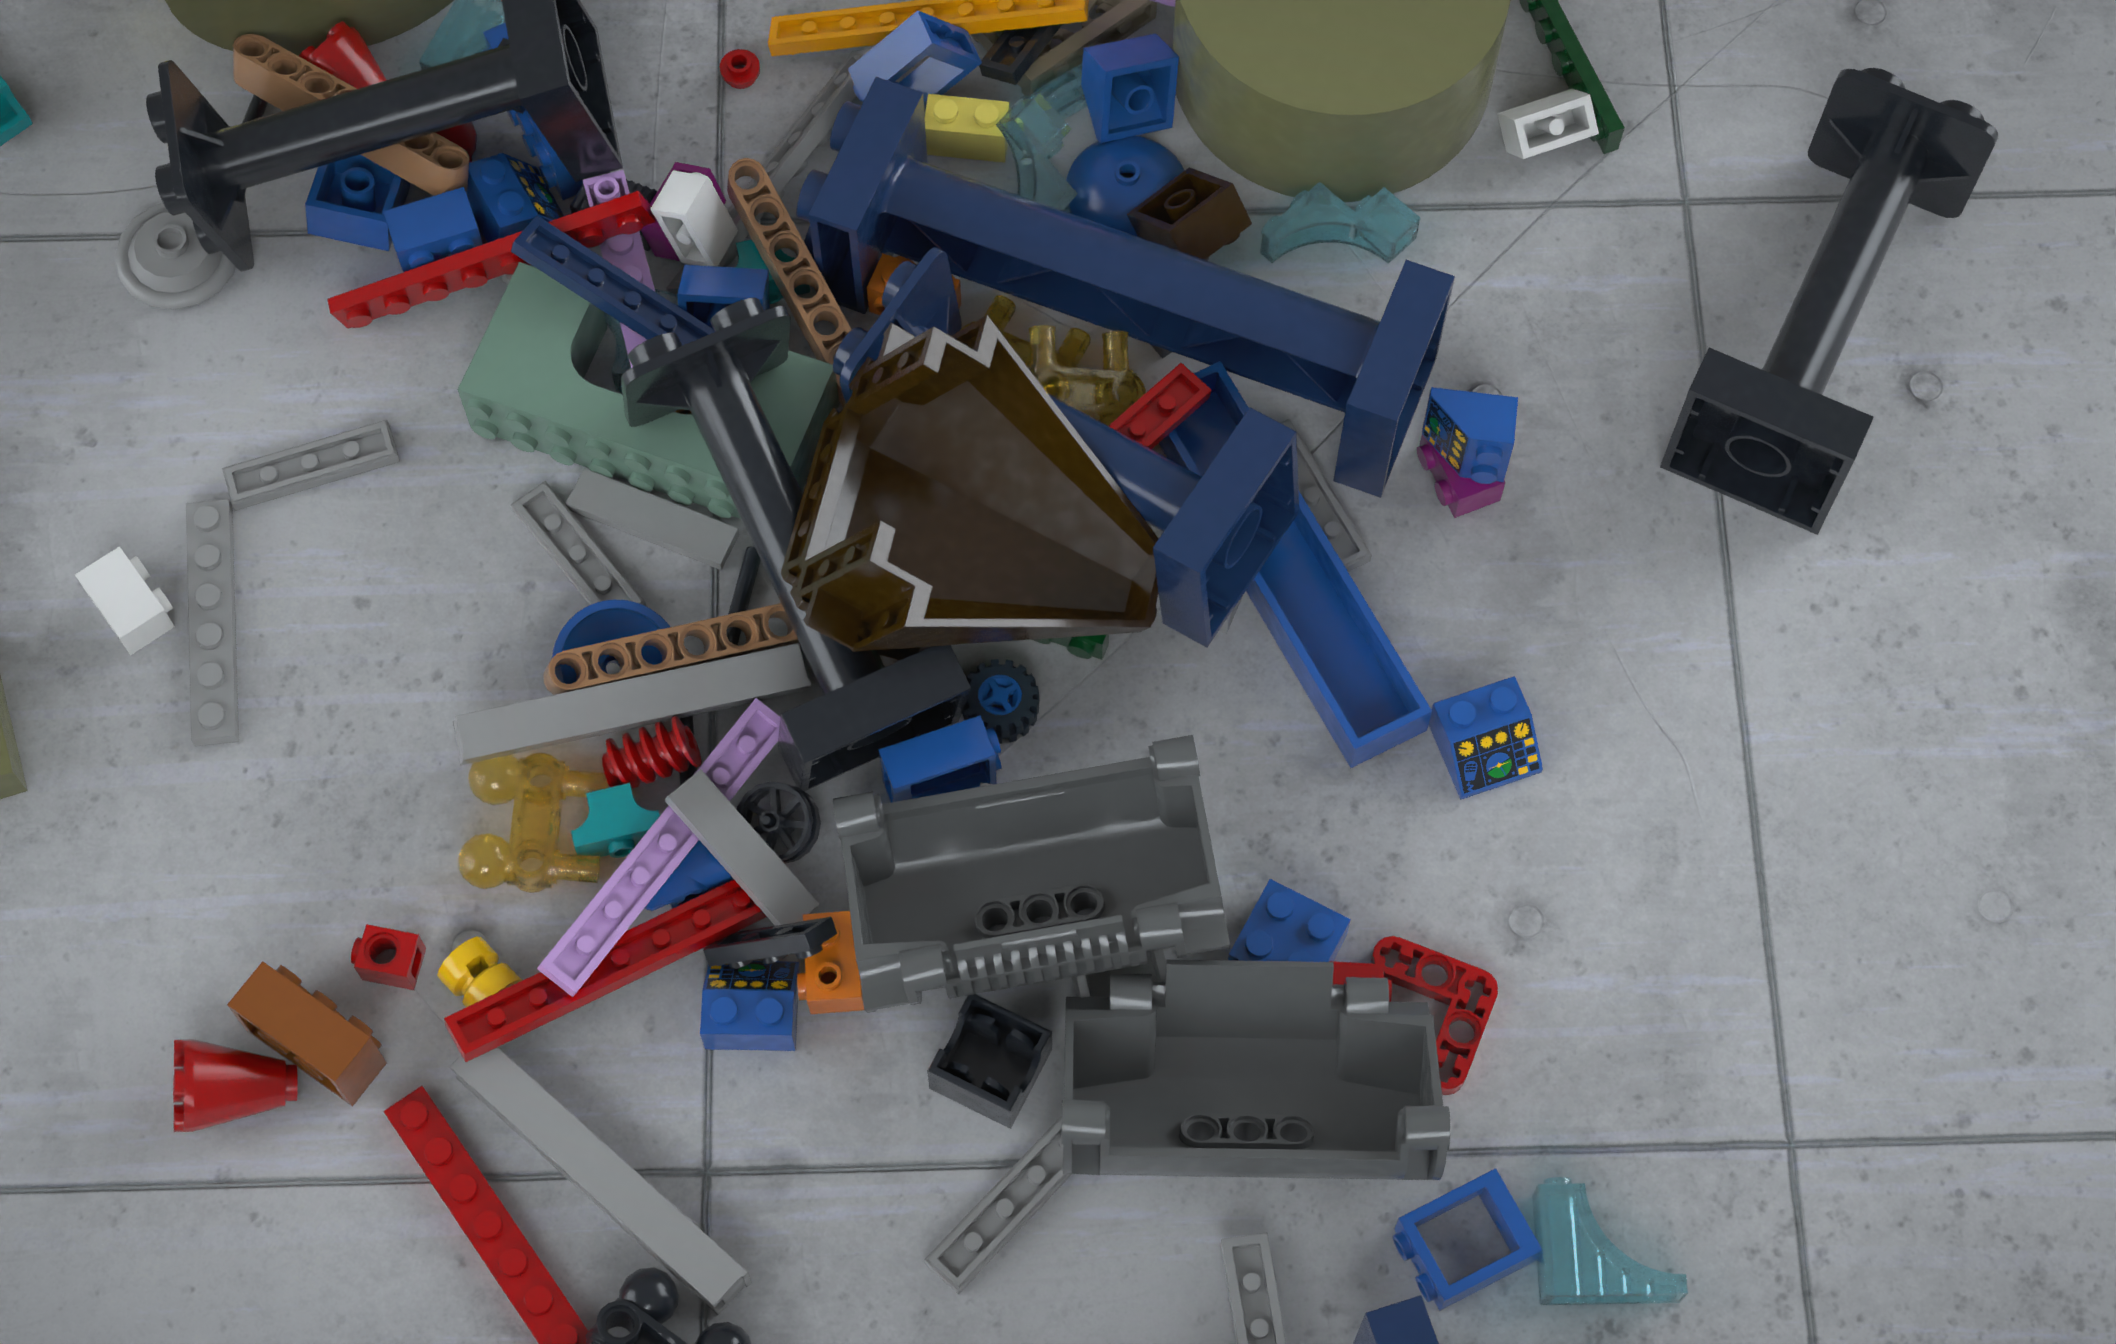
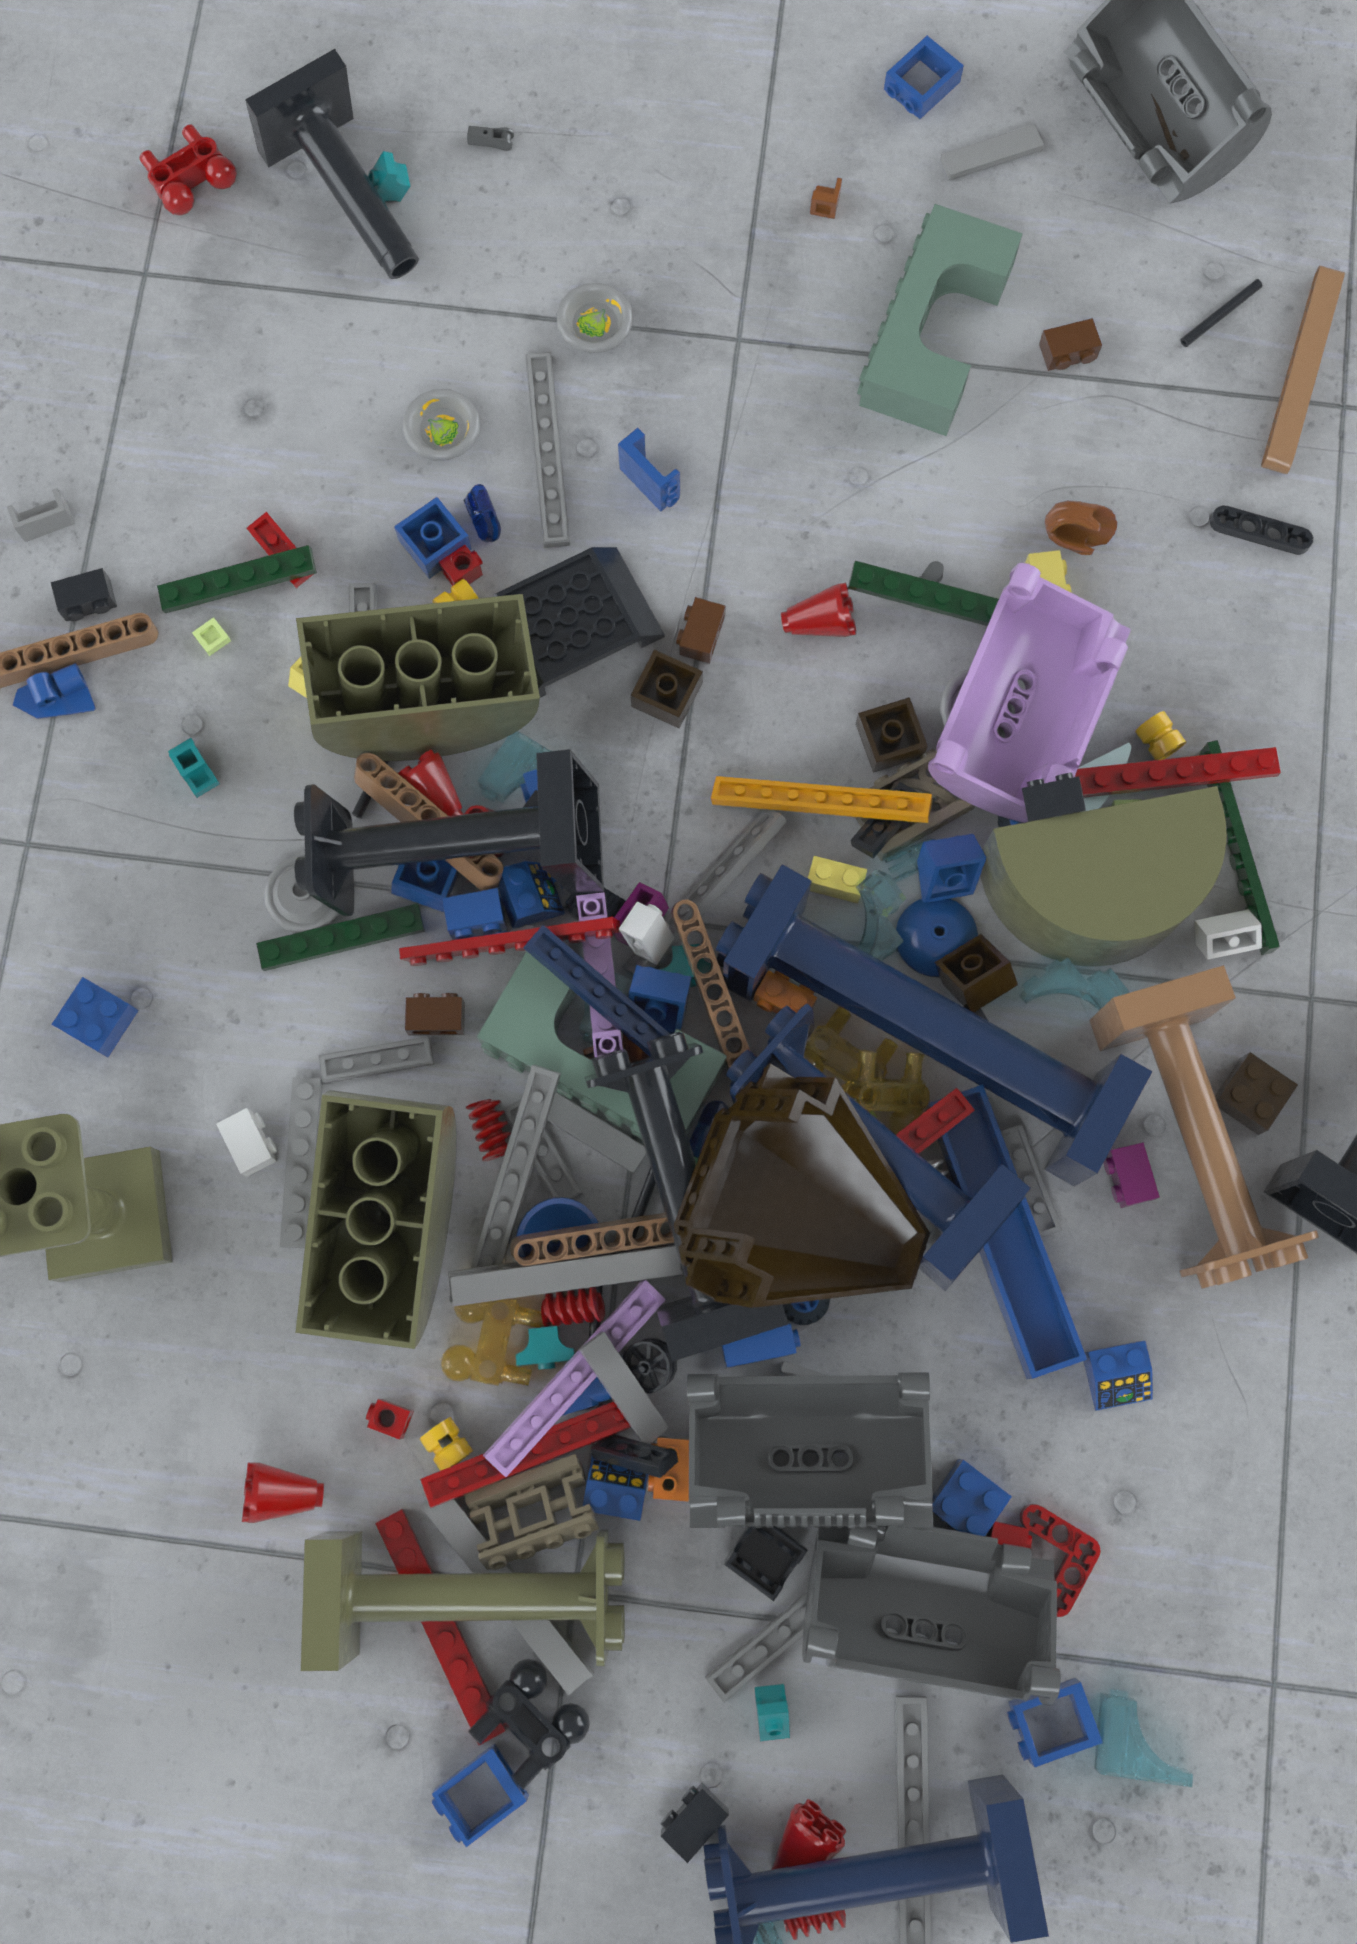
camera: 10 degrees right, 10 degrees up
(237, 305) = (340, 937): none -> dark green plate
(309, 1031) = (333, 1468): dark orange brick -> none
(334, 626) = (377, 1218): none -> olive brick
(339, 1198) = (341, 1597): none -> olive piece
(392, 388) = (434, 1014): none -> reddish brown brick
(495, 530) = (490, 1127): none -> red piece
(541, 558) = (516, 1167): none -> light grey plate
(610, 1024) = (523, 1491): none -> dark tan fence
(742, 77) = (690, 818): red plate -> none
(921, 35) = (807, 835): blue window -> none
(1033, 1290) = (772, 1712): none -> teal brick
(1472, 431) = (1145, 1169): blue slope -> none
(1476, 224) = (1164, 1017): none -> medium nougat piece
(1621, 330) = (1254, 1093): none -> dark brown brick

